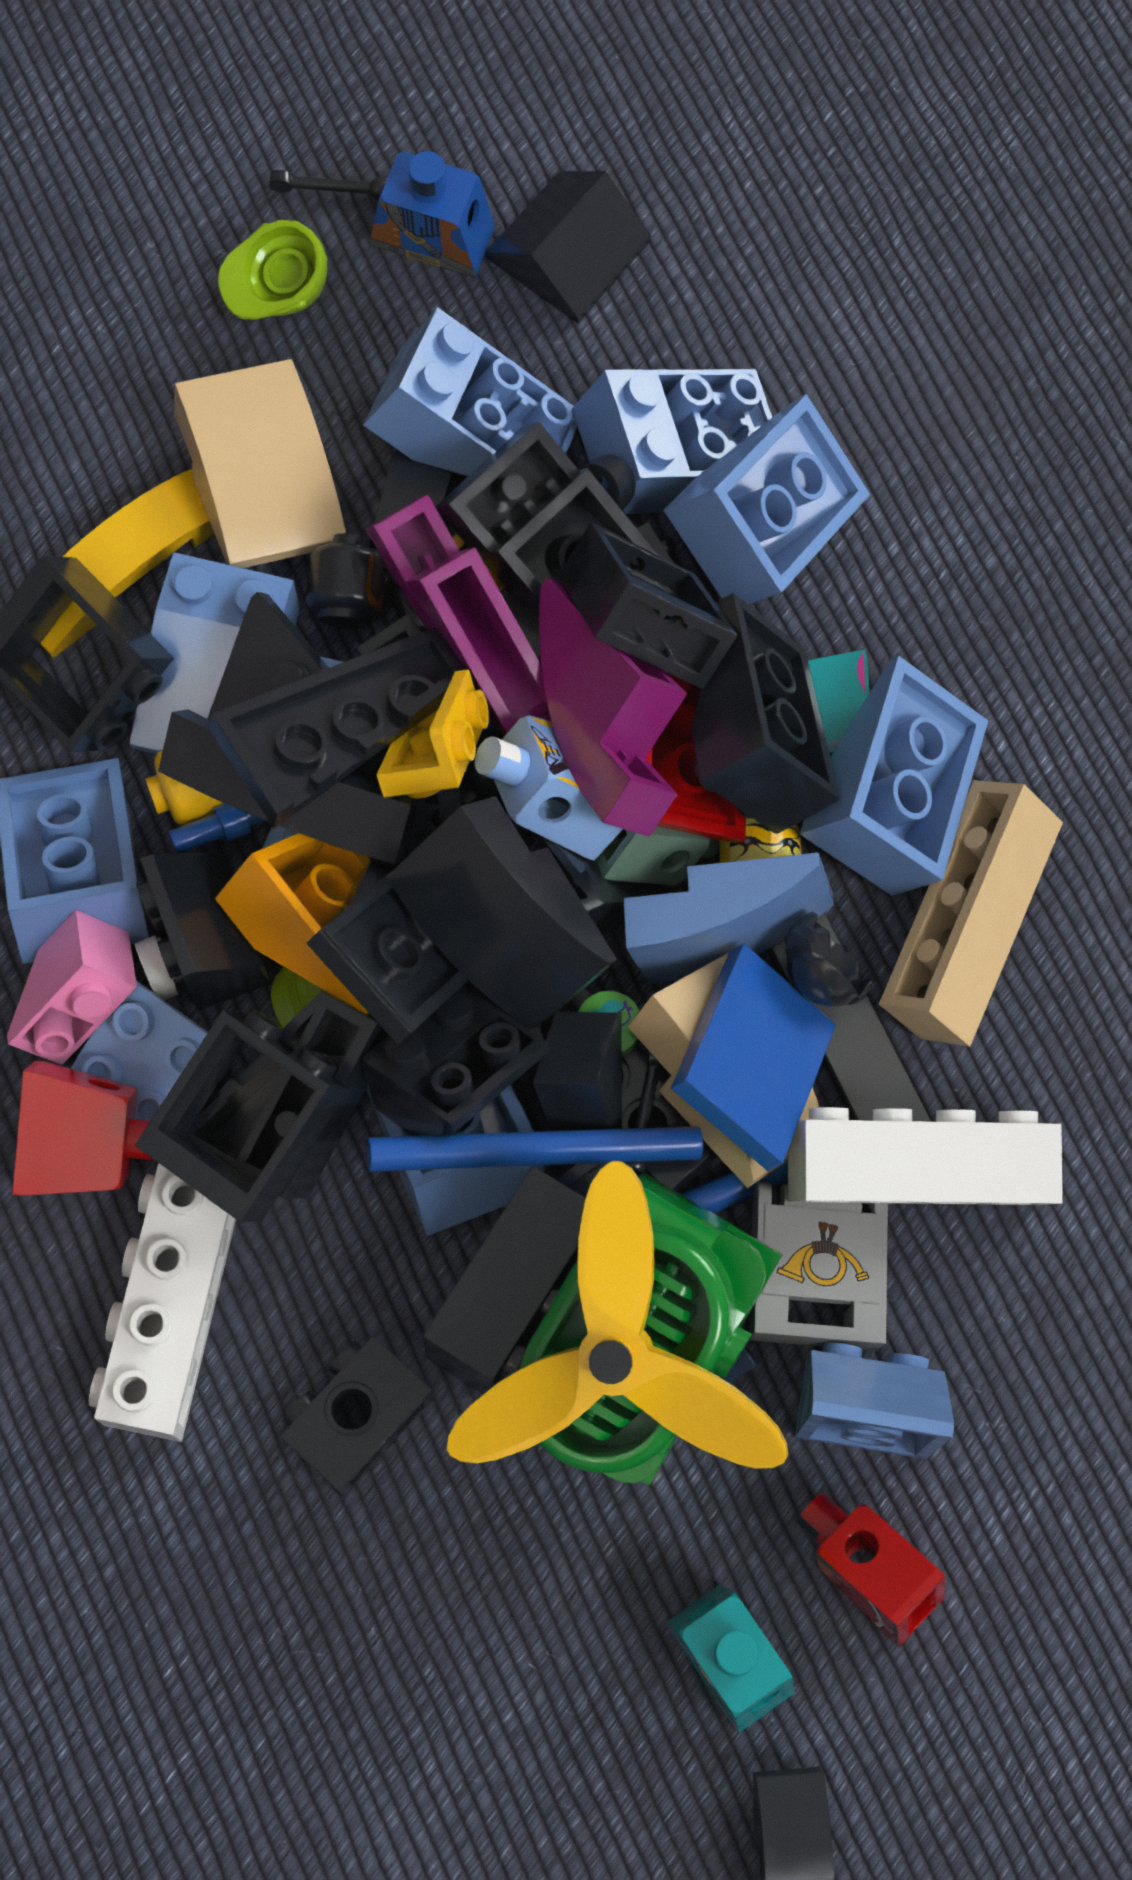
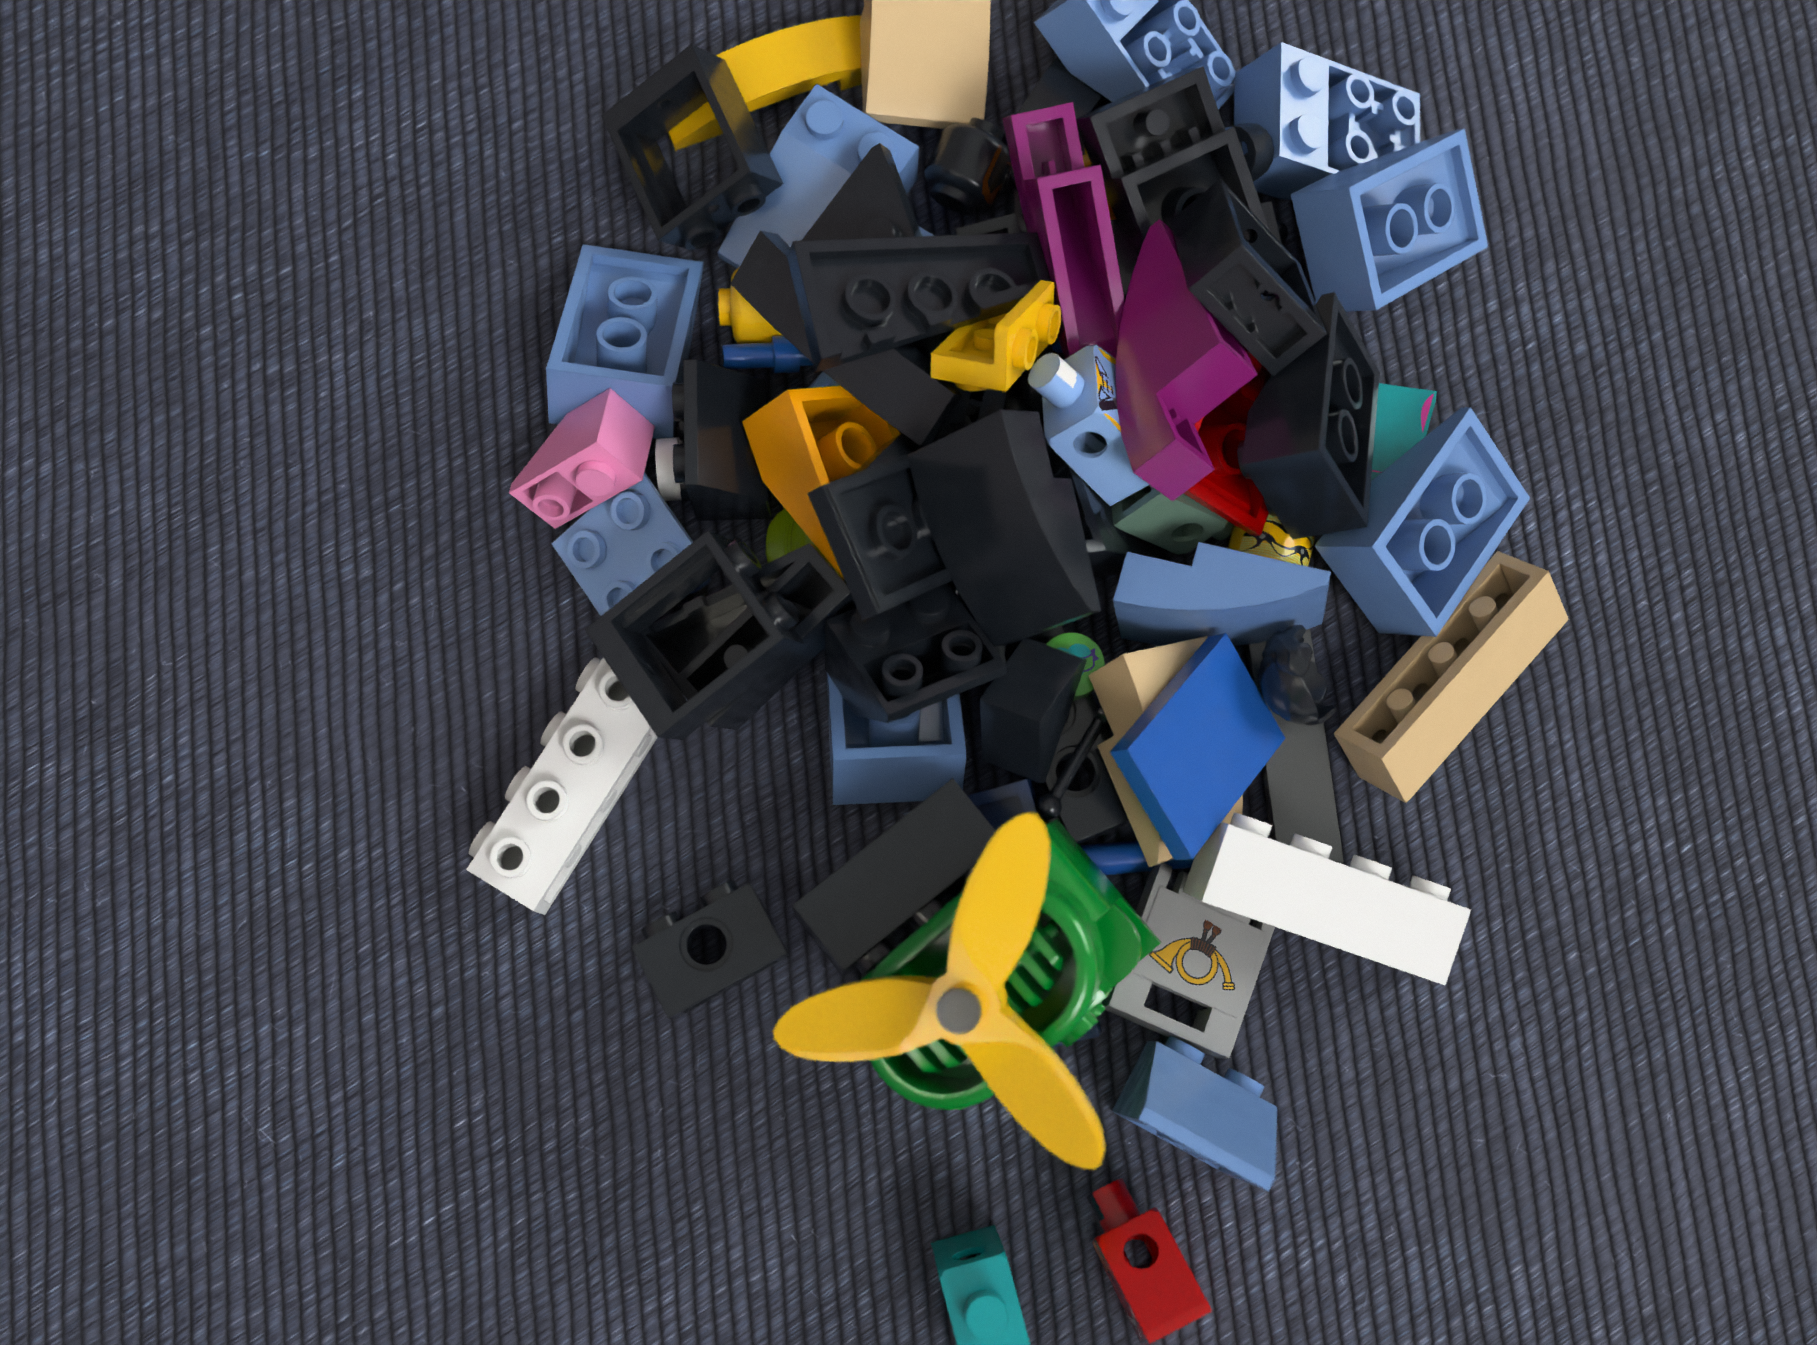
camera: 15 degrees right, 5 degrees up
(74, 1132) = (539, 594): red torso -> none
(533, 1148) = (959, 761): blue piece -> none

